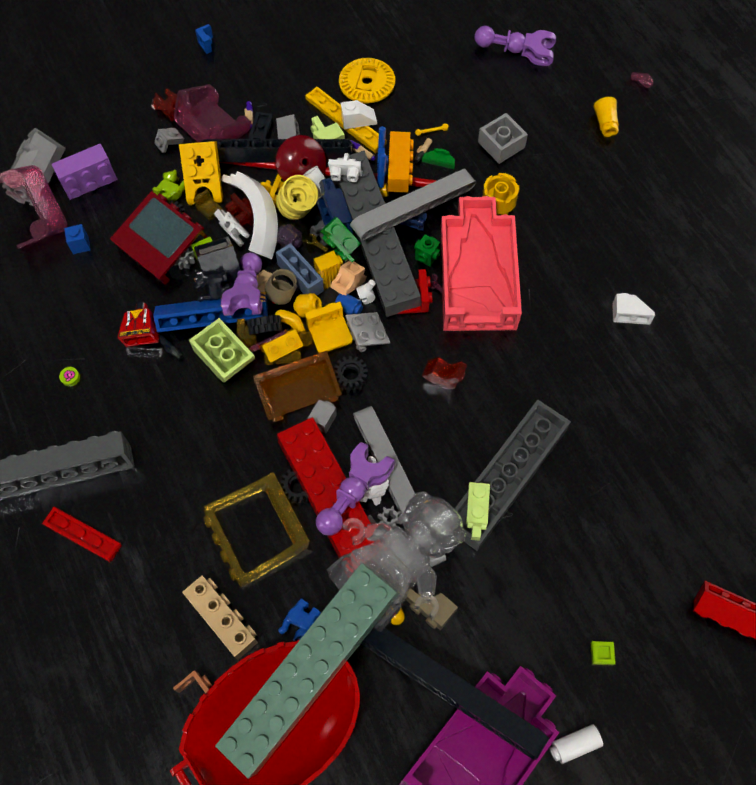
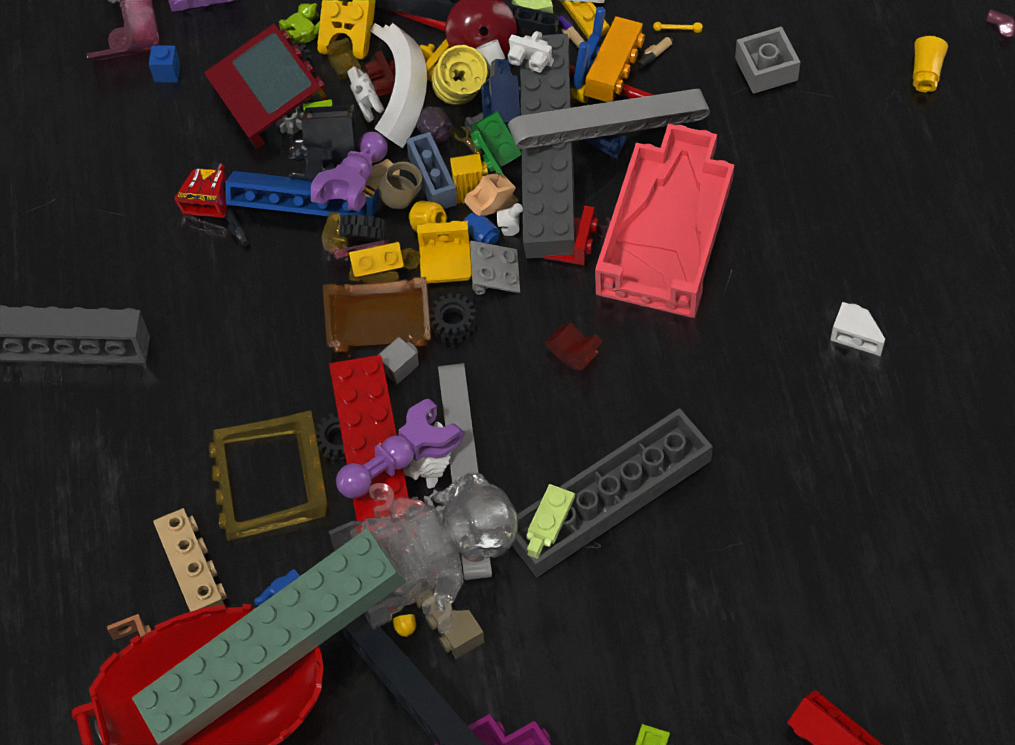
camera: 20 degrees right, 5 degrees down
(69, 376) = (102, 233): lime tile -> none
(82, 534) = (57, 425): red tile -> none
(221, 350) = (297, 245): yellowish green brick -> none
(291, 319) = (401, 230): yellow arm -> none
(427, 250) = (608, 184): green brick -> none
(439, 157) = (673, 66): green tile -> none
(504, 189) = (737, 133): yellow brick -> none

